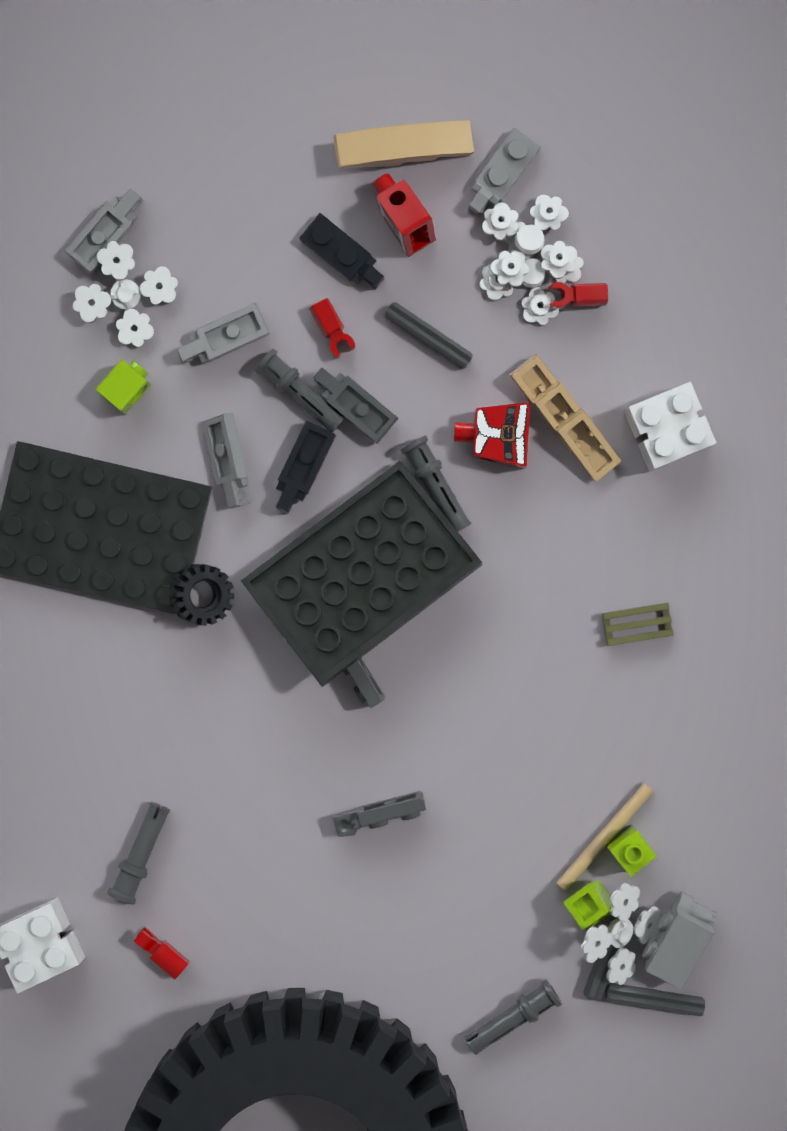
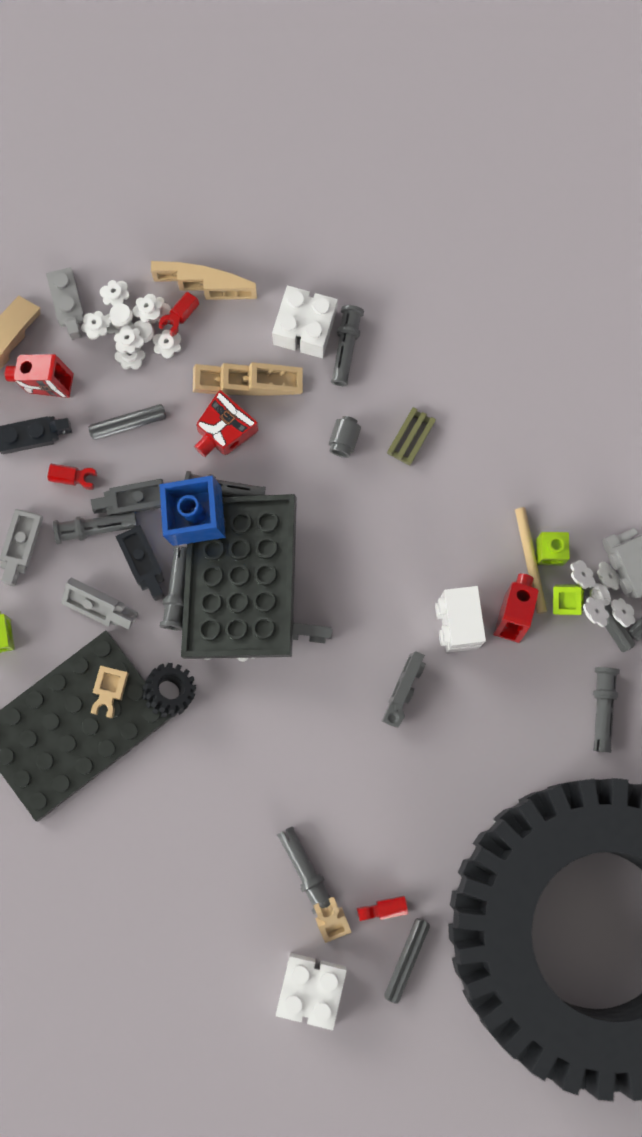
camera: 50 degrees left, 10 degrees down
(112, 915) = (331, 921): none -> tan plate
(133, 1010) = (407, 961): none -> dark grey axle
(159, 538) = (109, 686): none -> tan plate
(290, 529) = (175, 600): none -> dark grey pin
(386, 478) = (192, 510): none -> blue brick
(487, 817) = (460, 619): none -> white piece
(530, 865) = (517, 609): none -> red torso
(583, 560) = (344, 436): none -> dark grey brick
(638, 302) = (214, 282): none -> tan slope
(693, 478) = (348, 334): none -> dark grey pin

